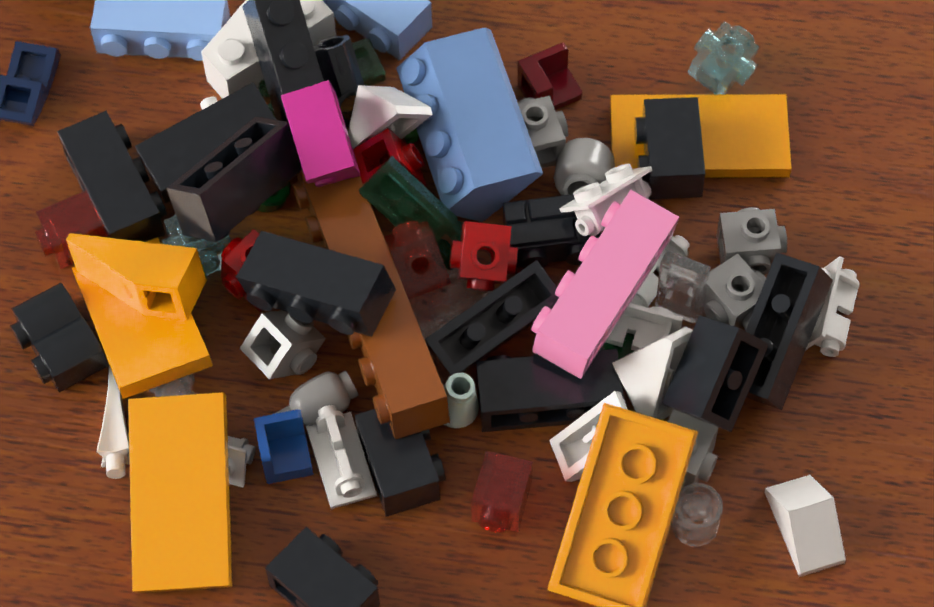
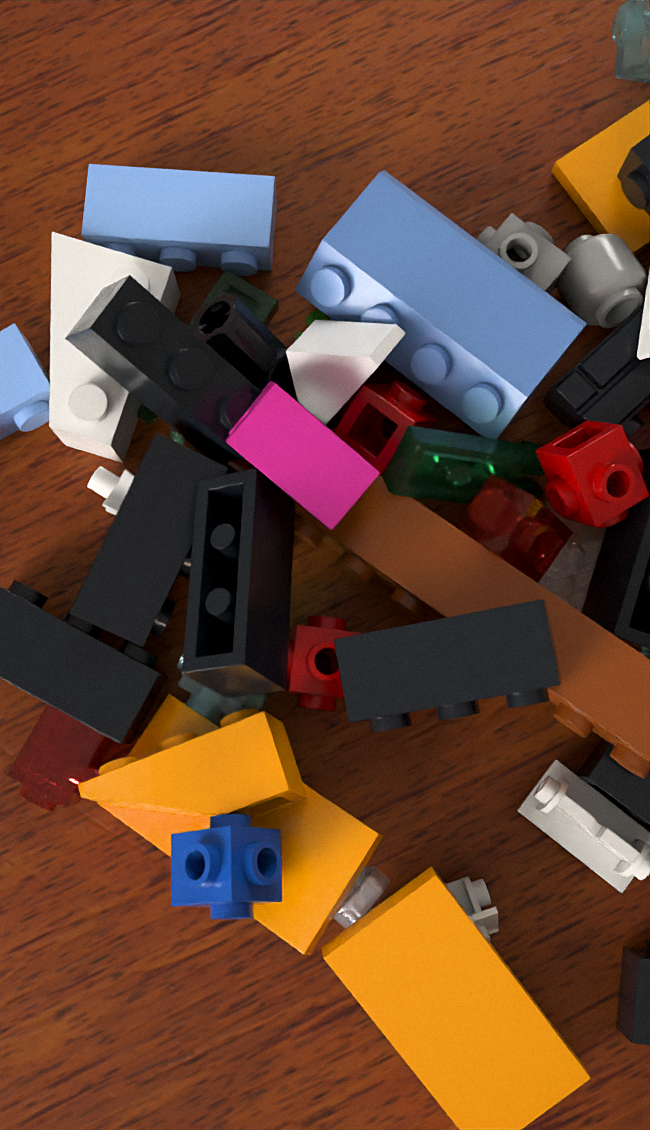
camera: 35 degrees left, 20 degrees up
(59, 338) = (132, 905): black brick -> none
(114, 312) = (226, 867): none -> blue brick
(114, 437) = (316, 984): white piece -> none
(282, 344) = (431, 751): light grey brick -> none
(283, 446) = (520, 862): blue panel -> none
(319, 392) = (514, 775): light grey plant -> none
(549, 75) = (471, 189): dark red panel -> none

